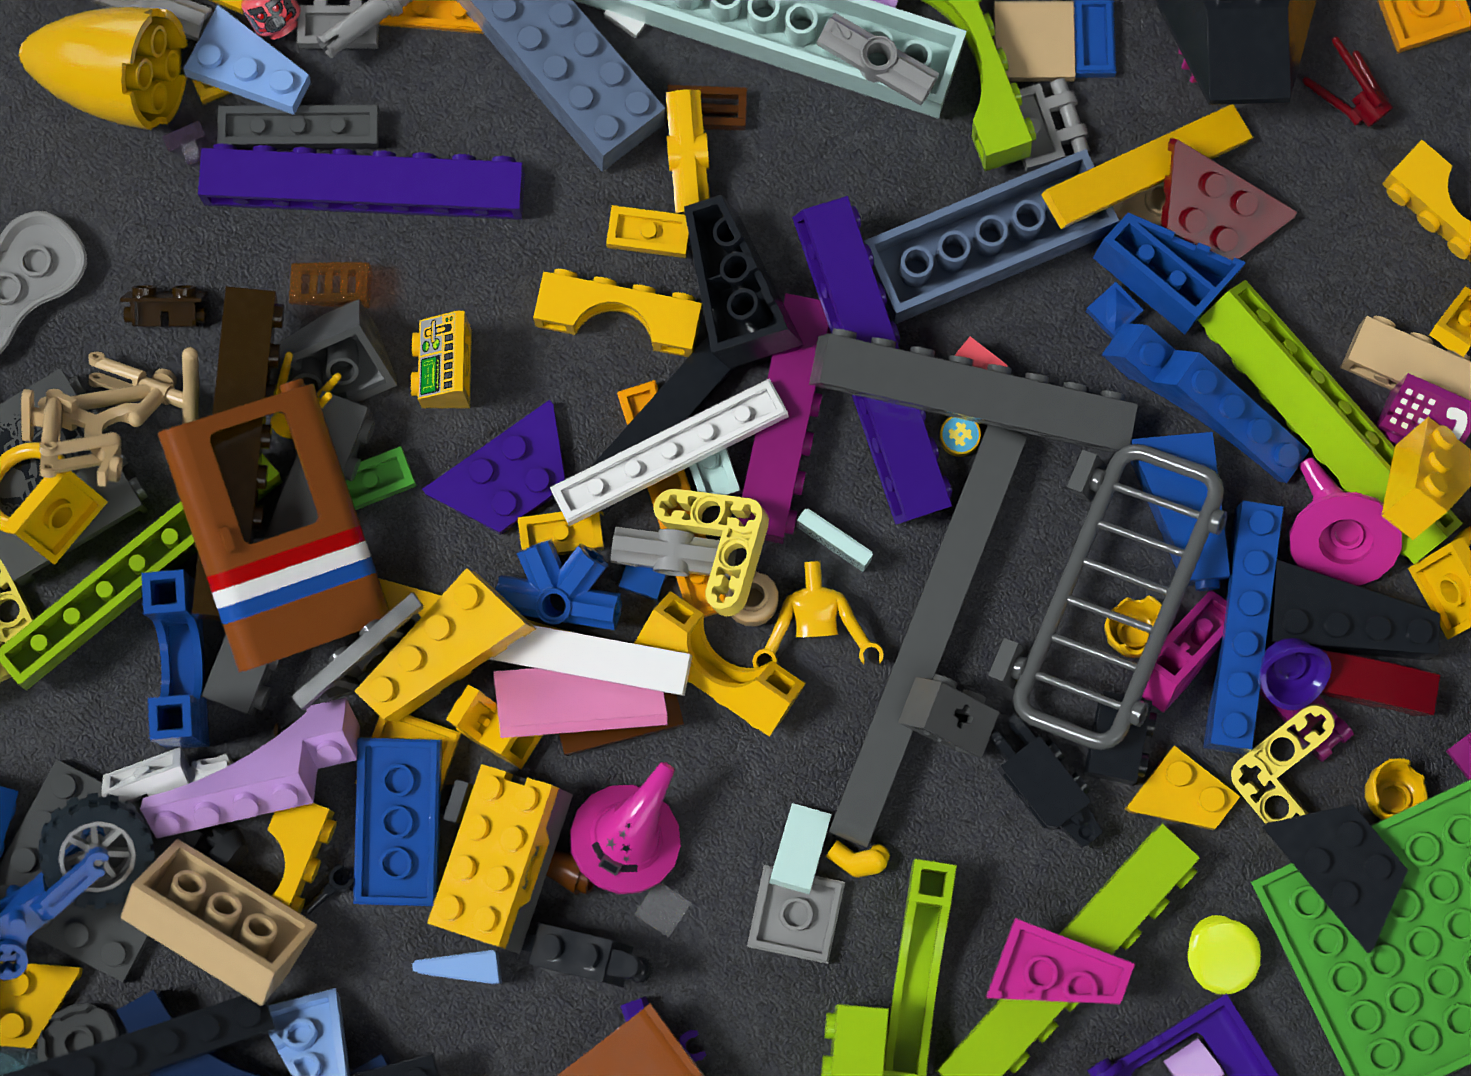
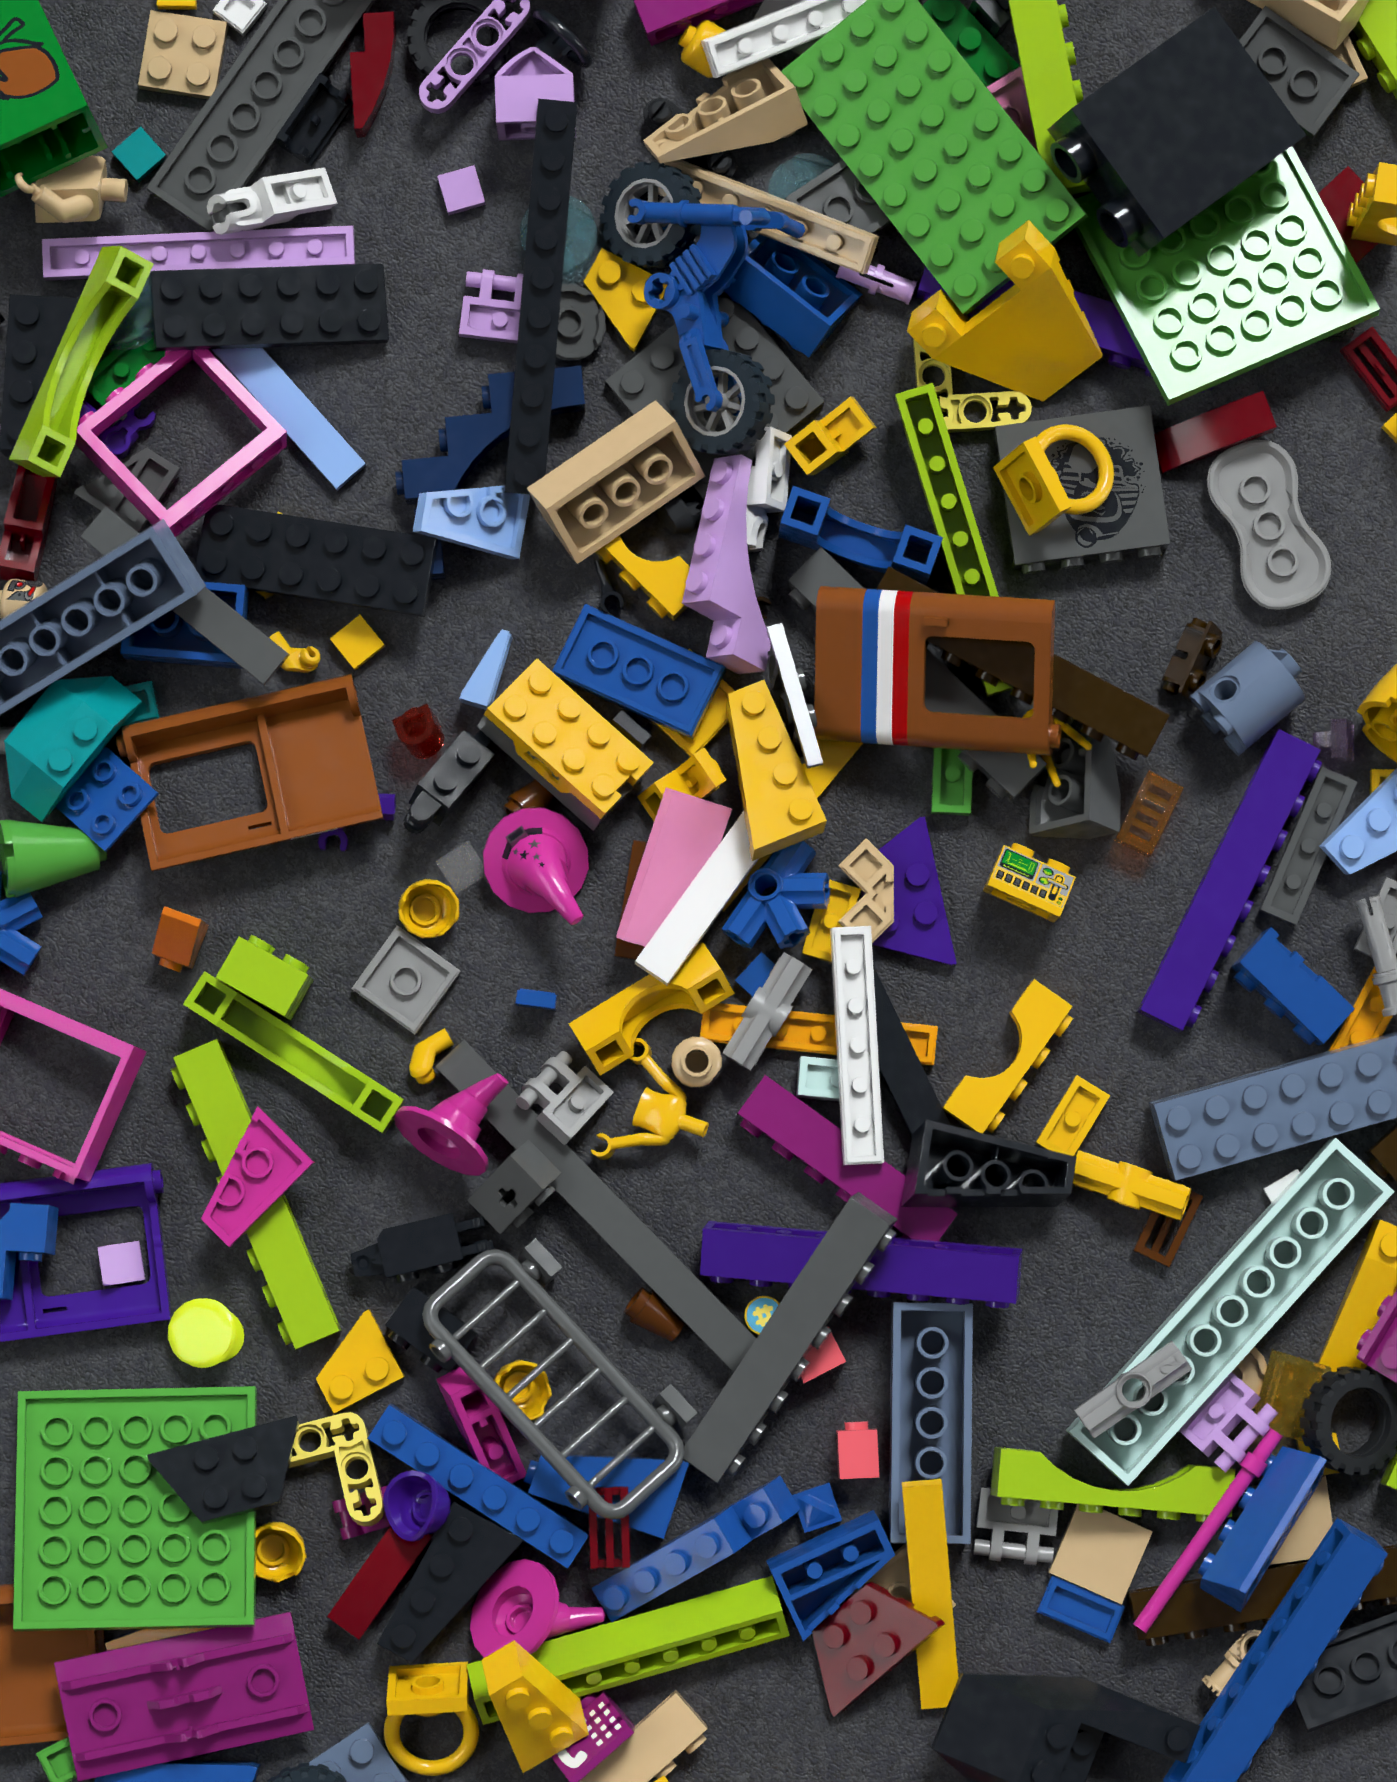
camera: 110 degrees right, 5 degrees up
(69, 412) = (1122, 530): tan piece -> none
(87, 735) = (831, 437): none -> yellow brick
(177, 233) = (1249, 695): none -> sand blue cylinder
(438, 85) = (1291, 988): none -> blue wedge
(501, 507) = (875, 877): none -> tan tile
(548, 1008) = (420, 731): none -> clear red plate
(717, 921) = (428, 908): none -> yellow hair
(732, 534) = (754, 1067): light yellow beam -> none
(759, 778) = (536, 999): none -> blue tile
(800, 848) = (460, 1008): light aqua tile -> none
(834, 539) = (718, 1159): light aqua tile -> none
(845, 696) = (573, 1106): none -> light grey plate
(919, 800) = (452, 1127): none -> dark pink piece
(1007, 537) = (653, 1314): none -> reddish brown cone
(1047, 293) = (857, 1451): none -> coral brick
(1257, 469) = (610, 1561): none -> dark red tile

